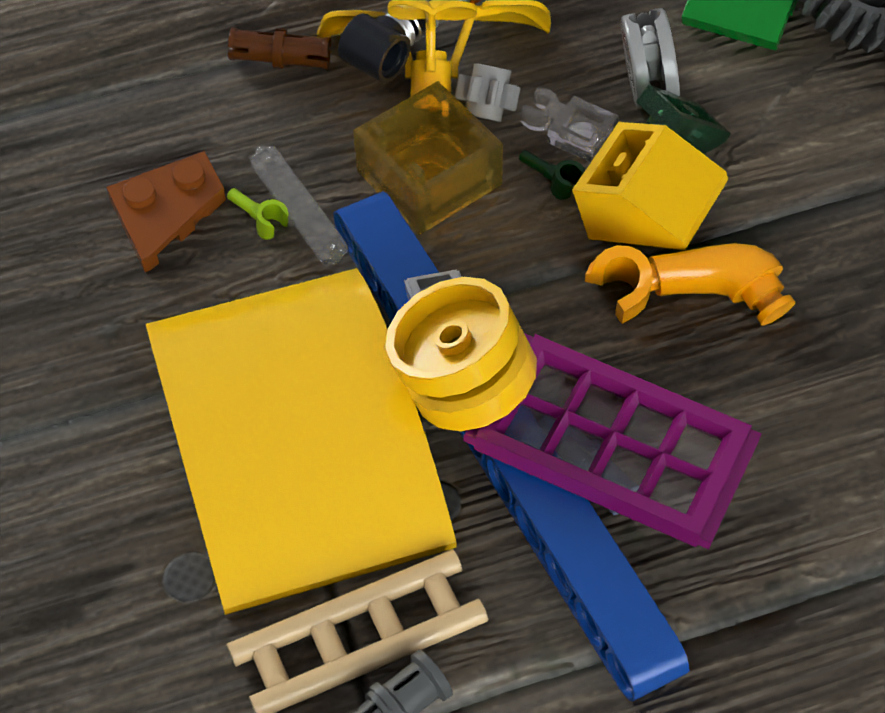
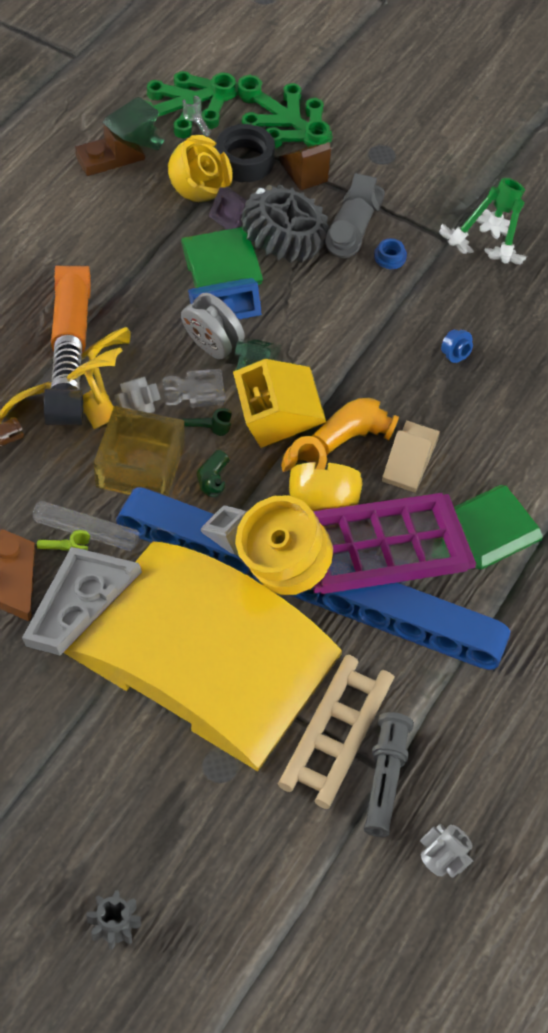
camera: 45 degrees left, 0 degrees up
(206, 275) = (77, 597): none -> light grey wing
(494, 231) = (208, 474): none -> dark green arm
(606, 327) = (324, 488): none -> yellow cylinder
(711, 45) = (238, 295): none -> blue slope
(772, 360) = (410, 456): none -> tan slope
(798, 520) = (496, 526): none -> green tile

